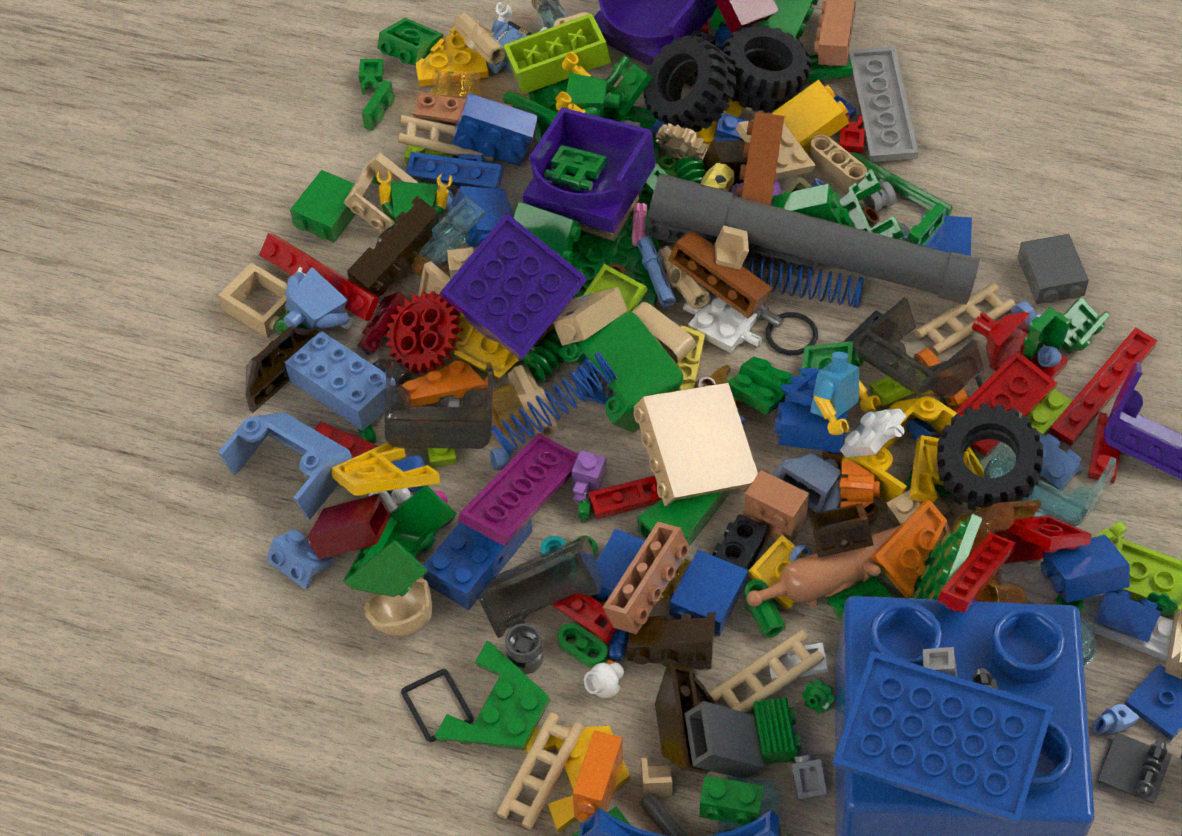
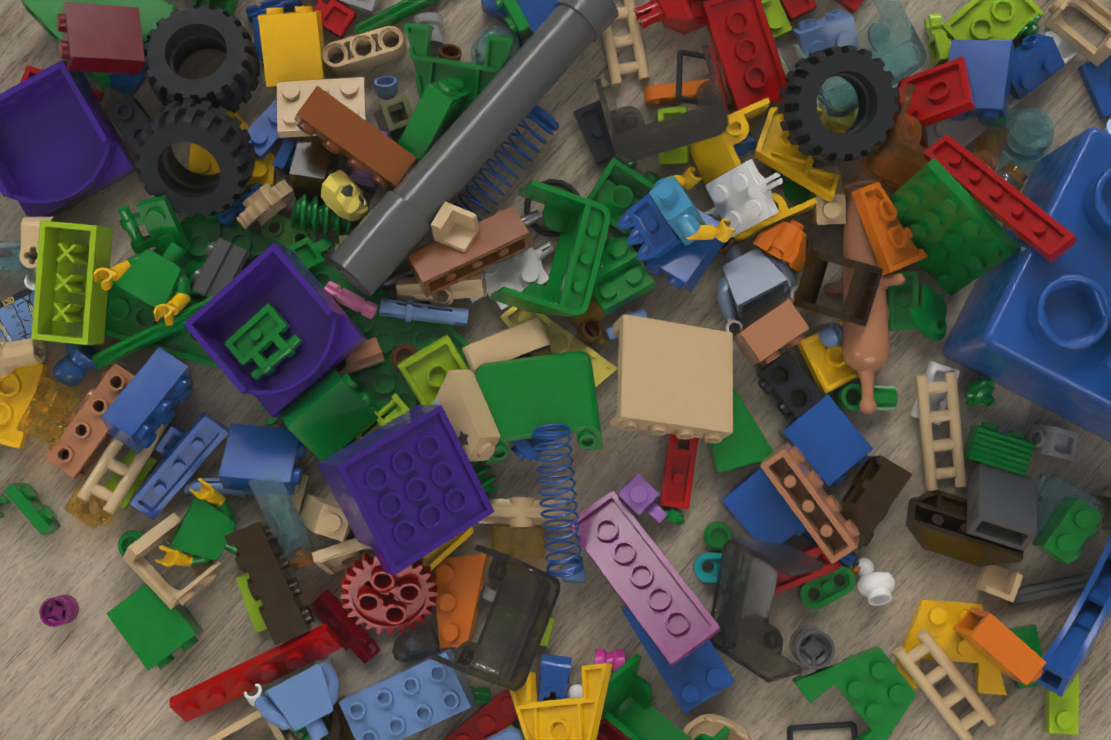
camera: 65 degrees left, 30 degrees up
(309, 147) = (52, 612): none -> magenta wheel
(390, 137) = (81, 510): none -> clear yellow brick
(495, 87) = (75, 365): none -> blue animal
(597, 243) = (364, 356): none -> nougat piece
(786, 340) = (577, 257): none -> green windscreen

